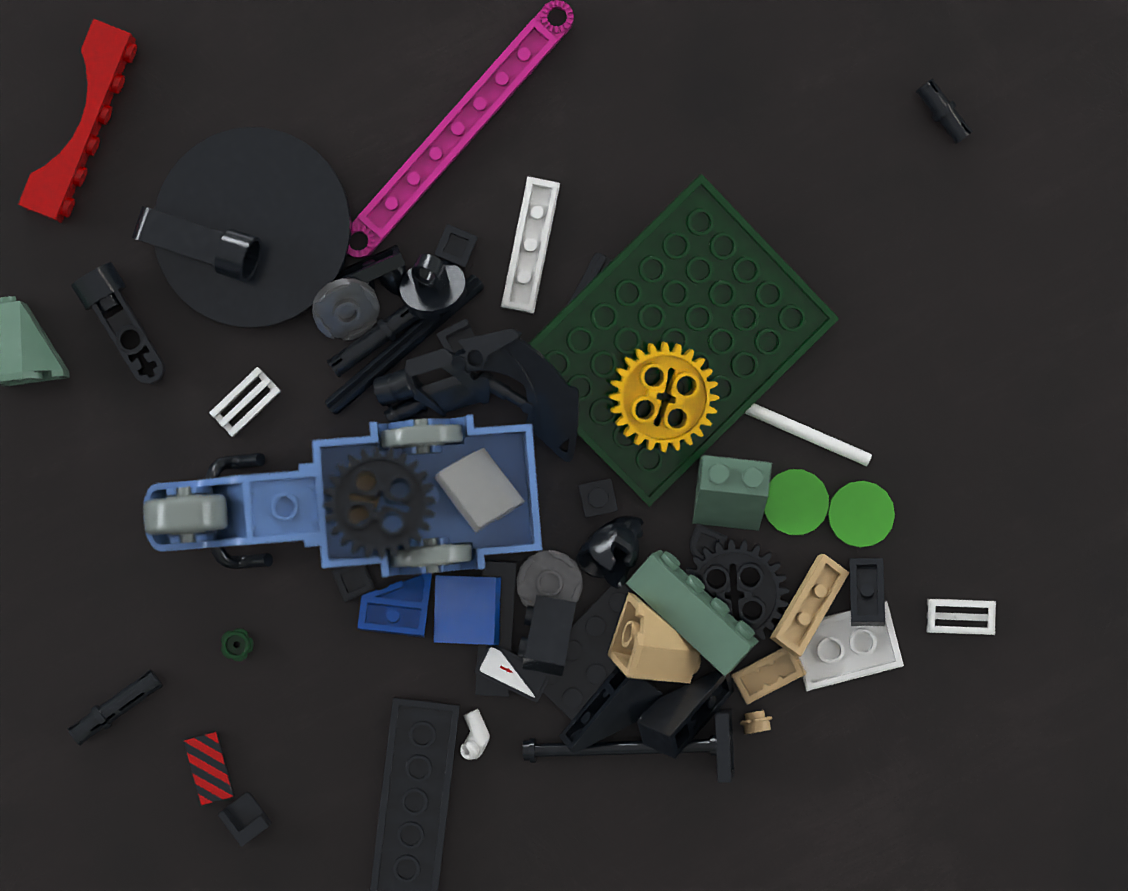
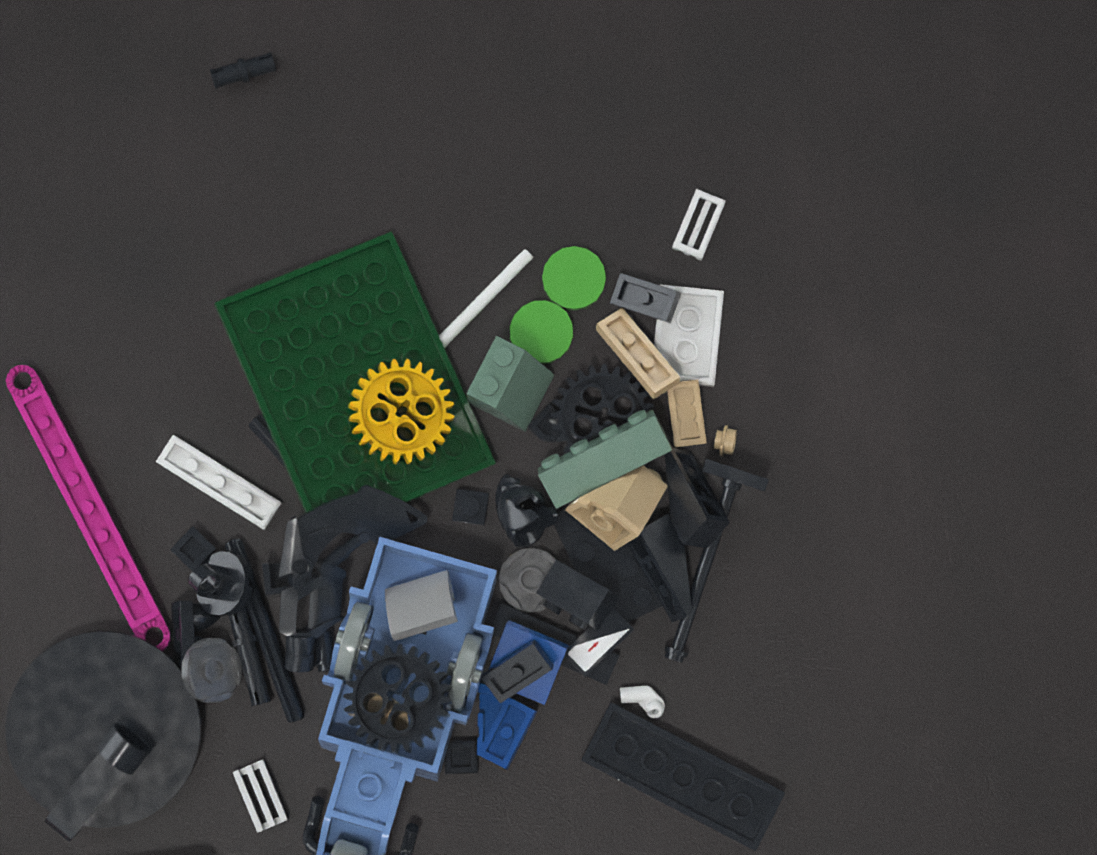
camera: 70 degrees left, 5 degrees down
(454, 605) = (517, 671): none -> black plate

